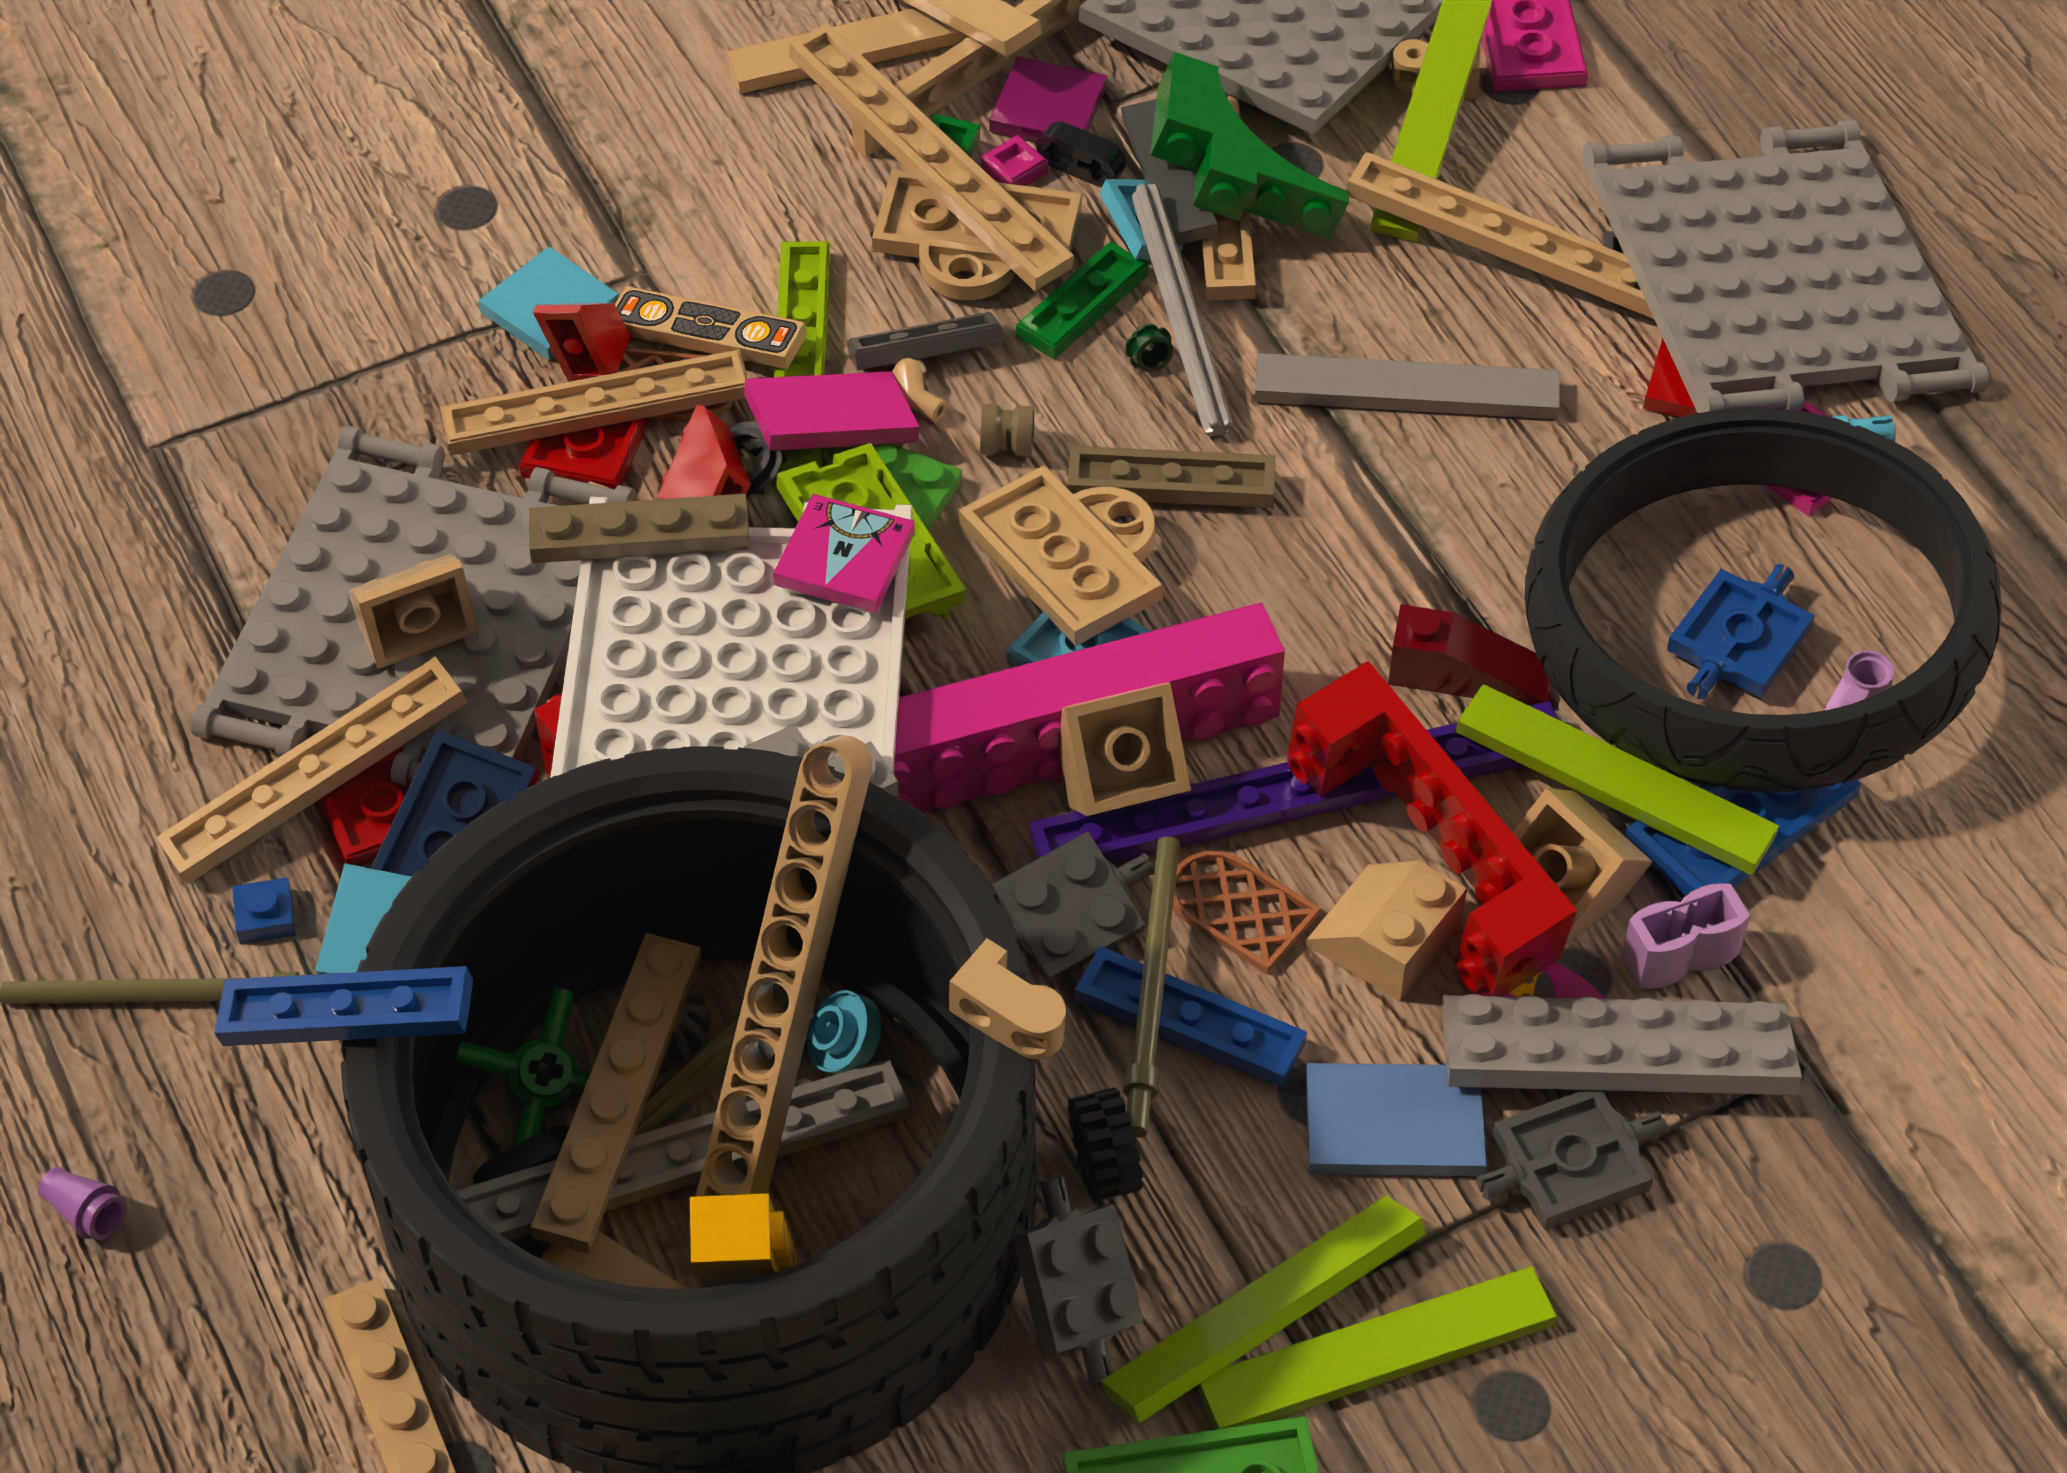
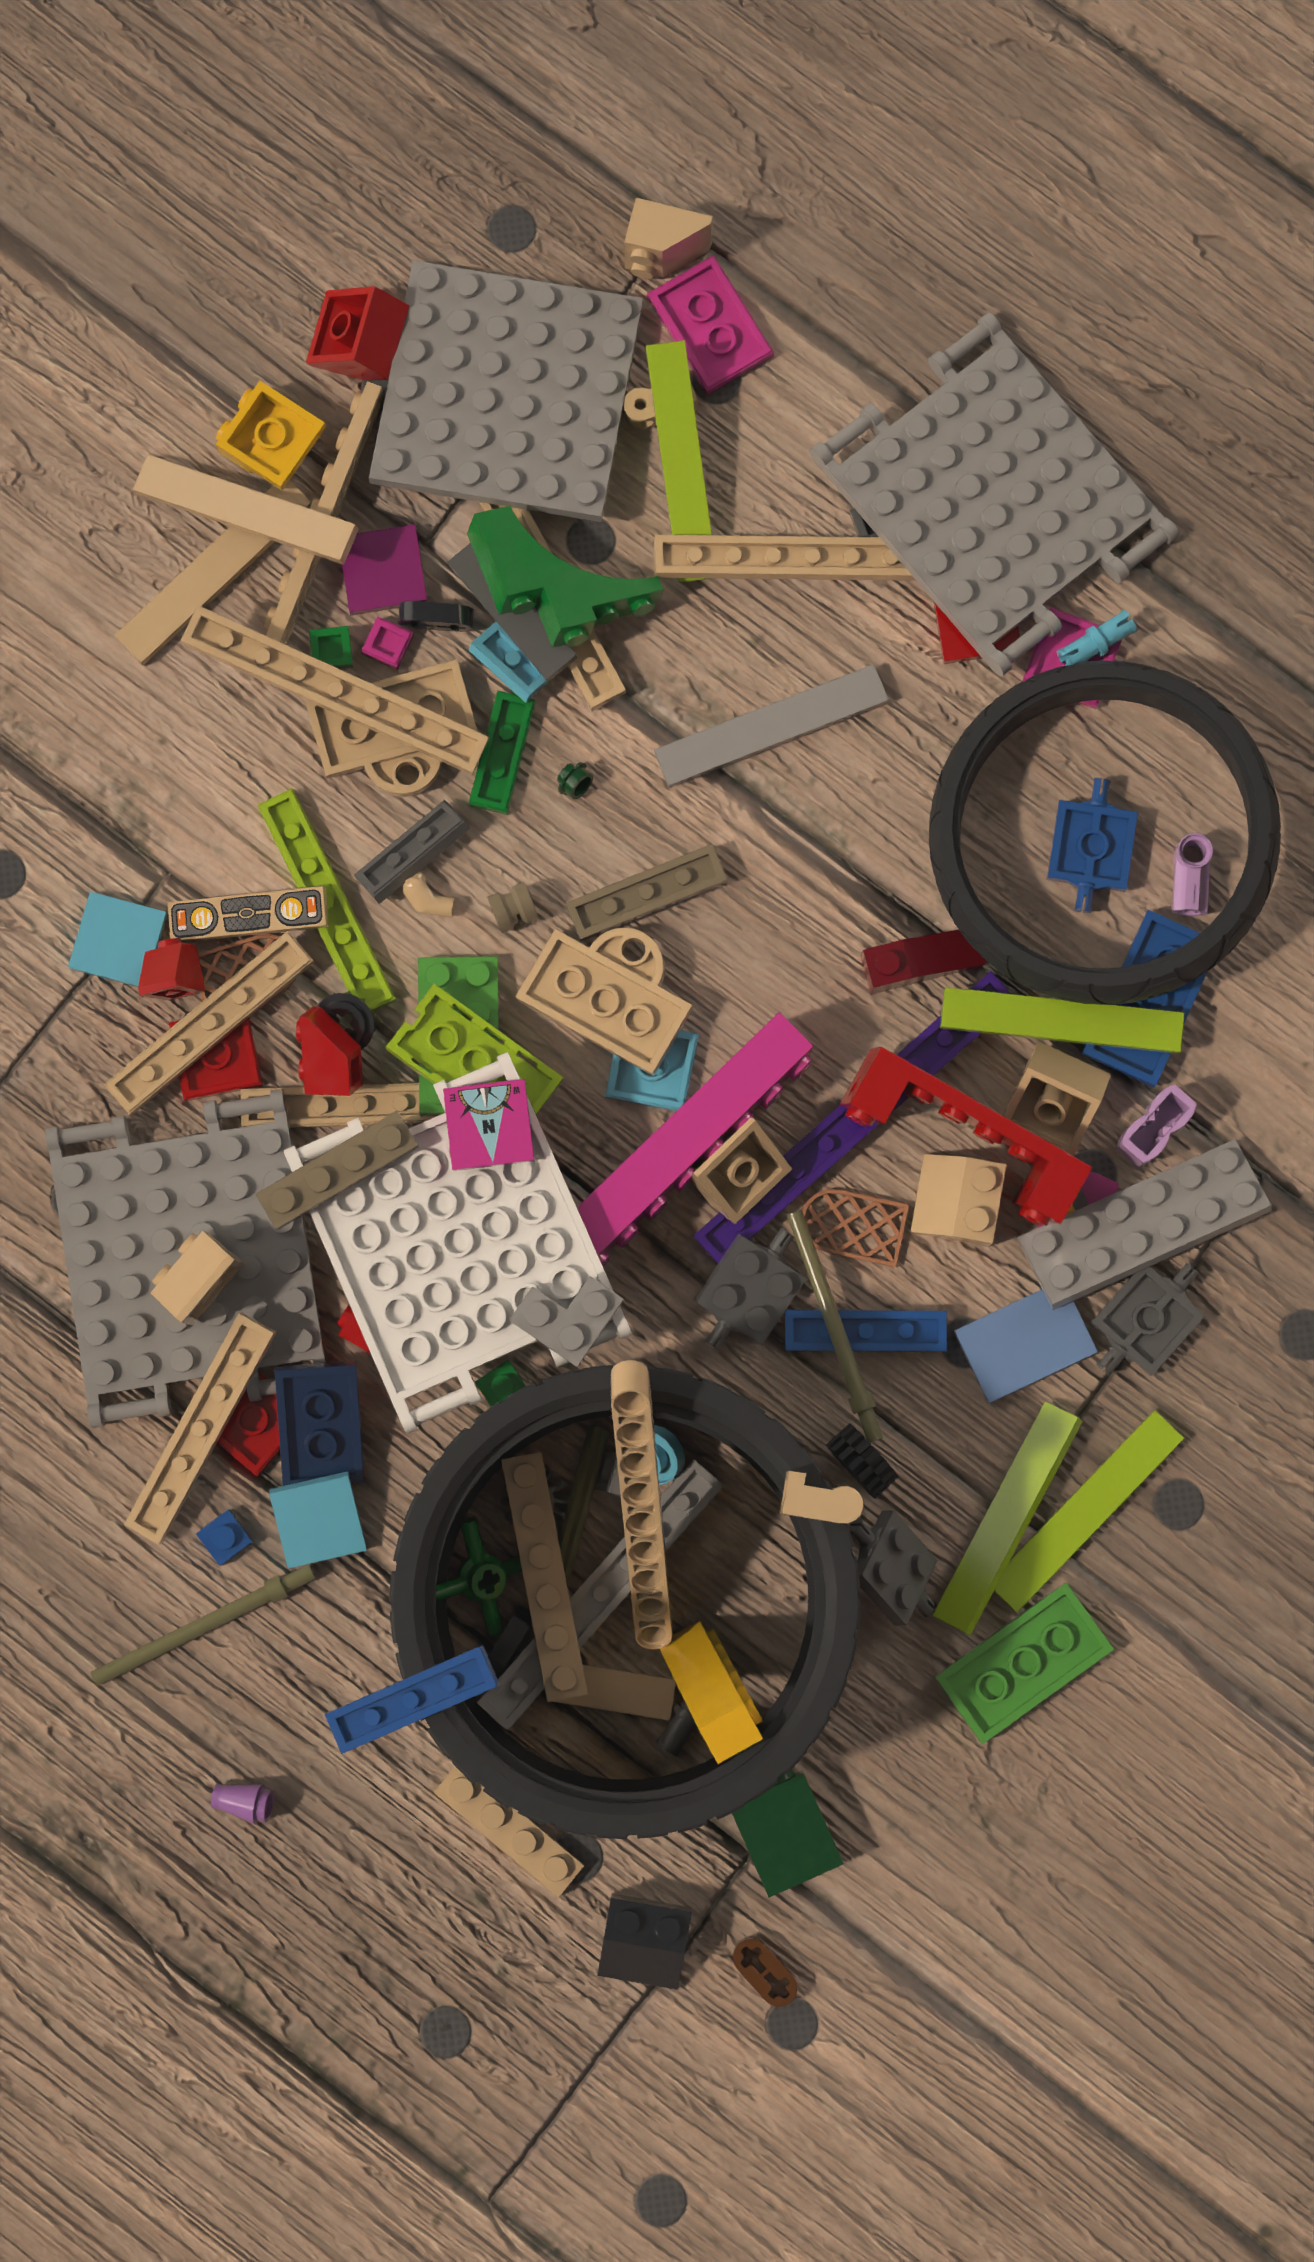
camera: 25 degrees left, 30 degrees up
(831, 410) = (384, 957): dark pink tile -> none
(1182, 310) = (584, 740): light grey axle -> none

